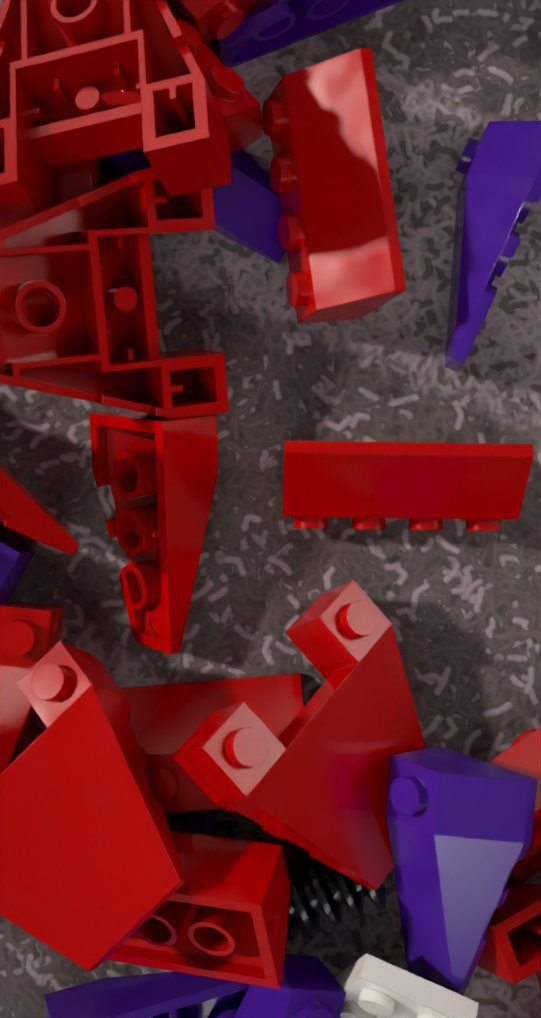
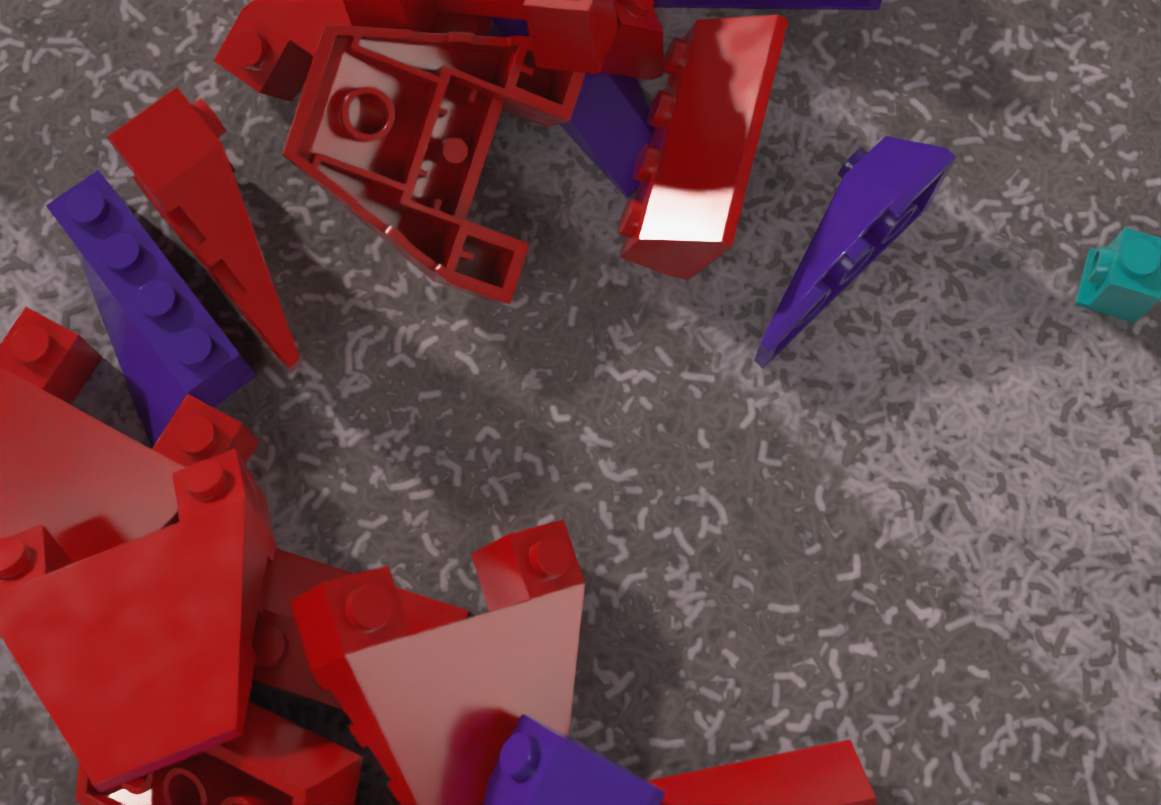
camera: 25 degrees right, 15 degrees down
(162, 495) = (413, 355): red wedge -> none
(404, 482) = (655, 443): red slope -> none

